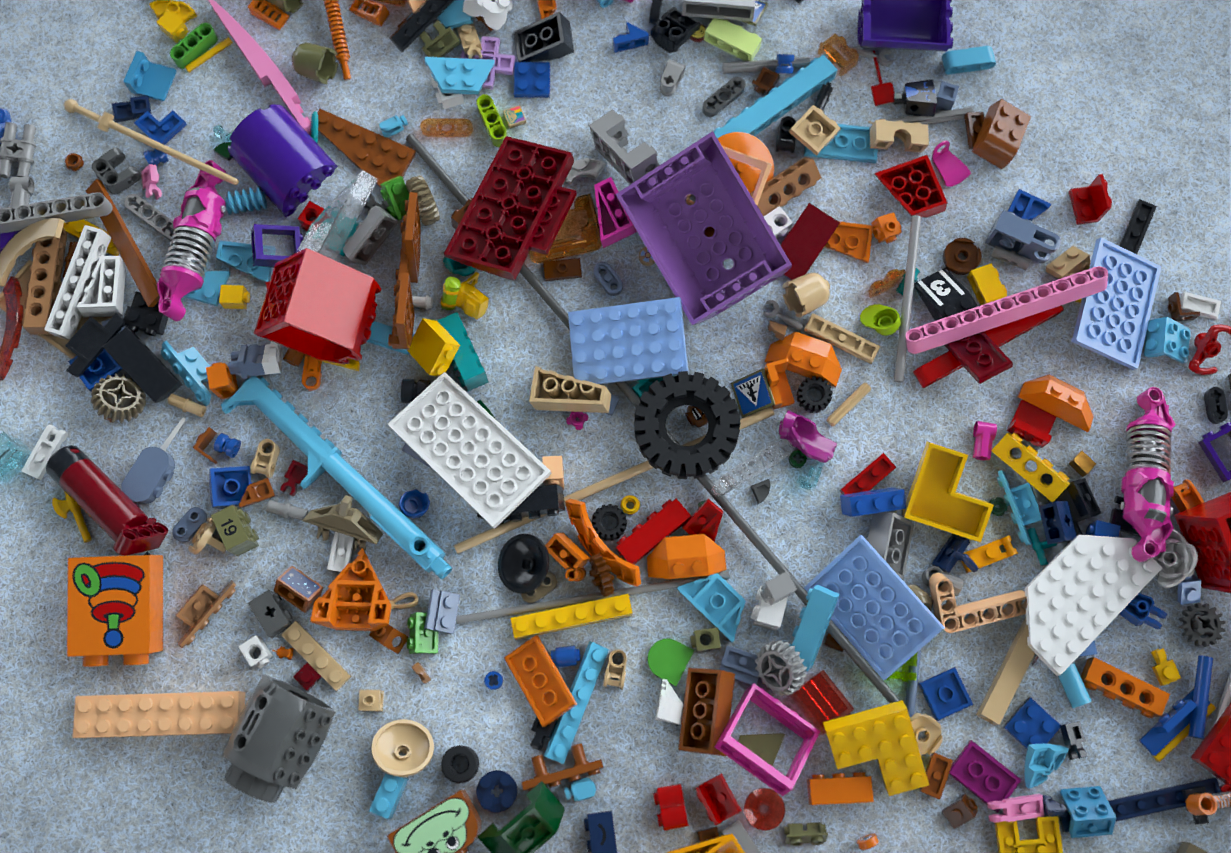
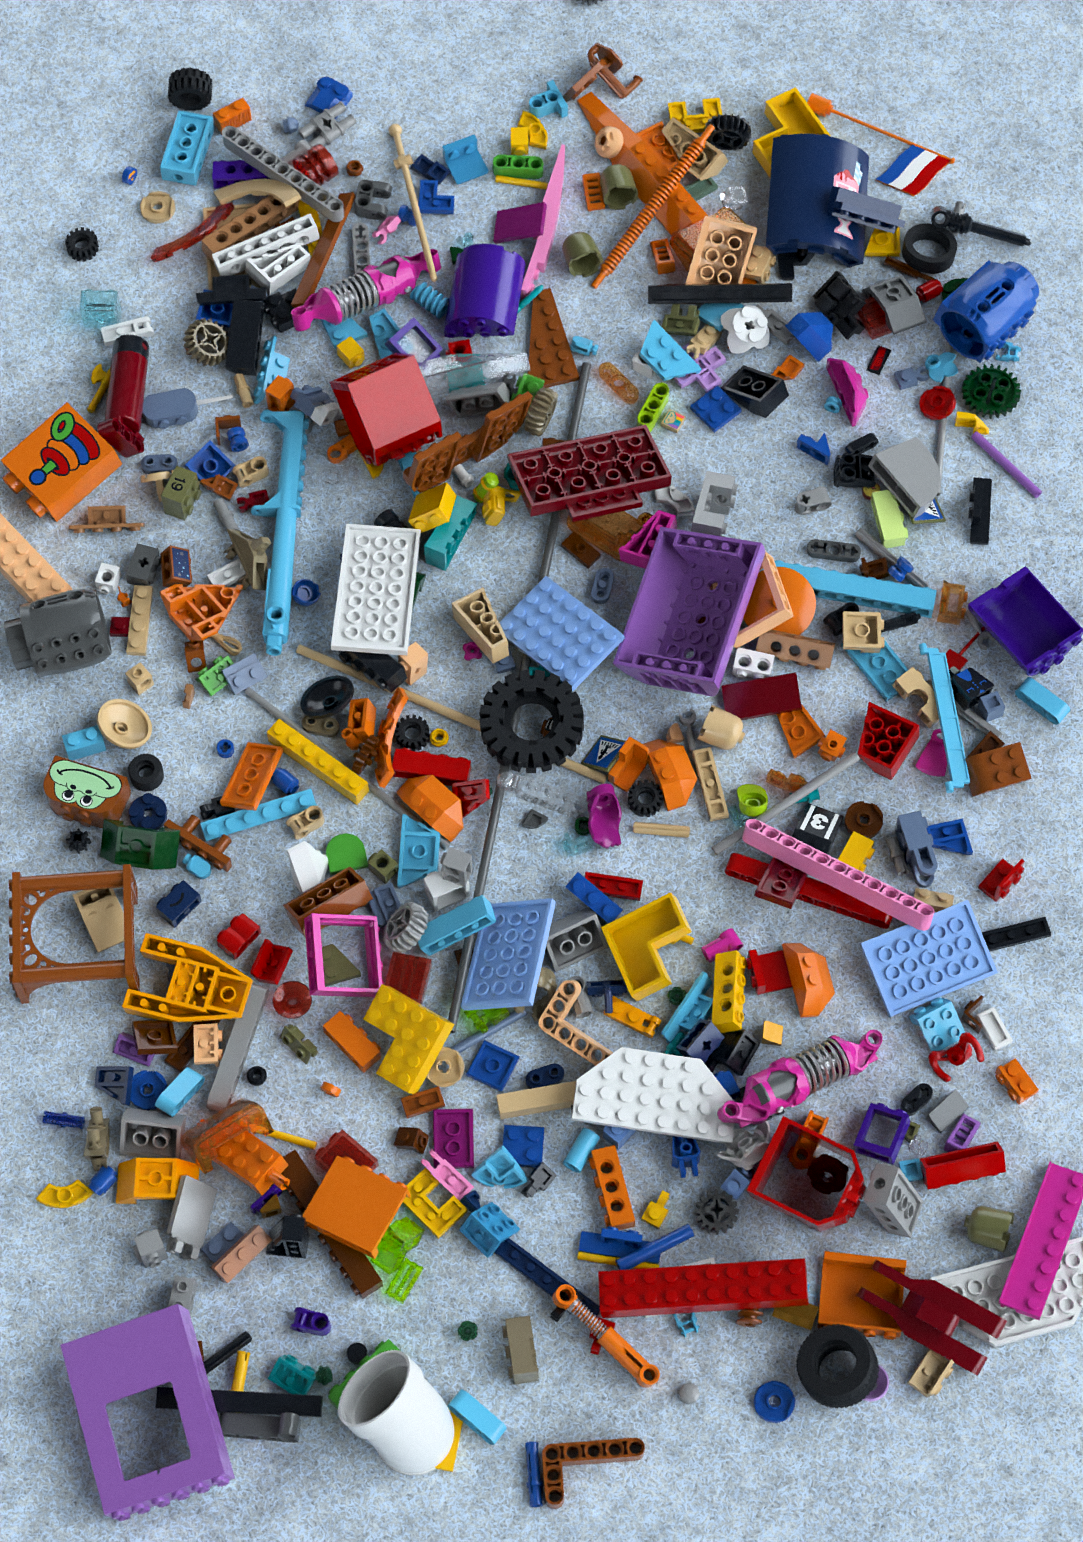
camera: 50 degrees right, 10 degrees down
(44, 184) = (317, 164): none -> clear red wheel
(244, 83) = (520, 222): none -> magenta tile
(886, 342) = (737, 818): none -> clear light blue arm
(935, 131) = (947, 717): none -> medium azure piece
(985, 660) = (545, 1076): none -> dark blue plate

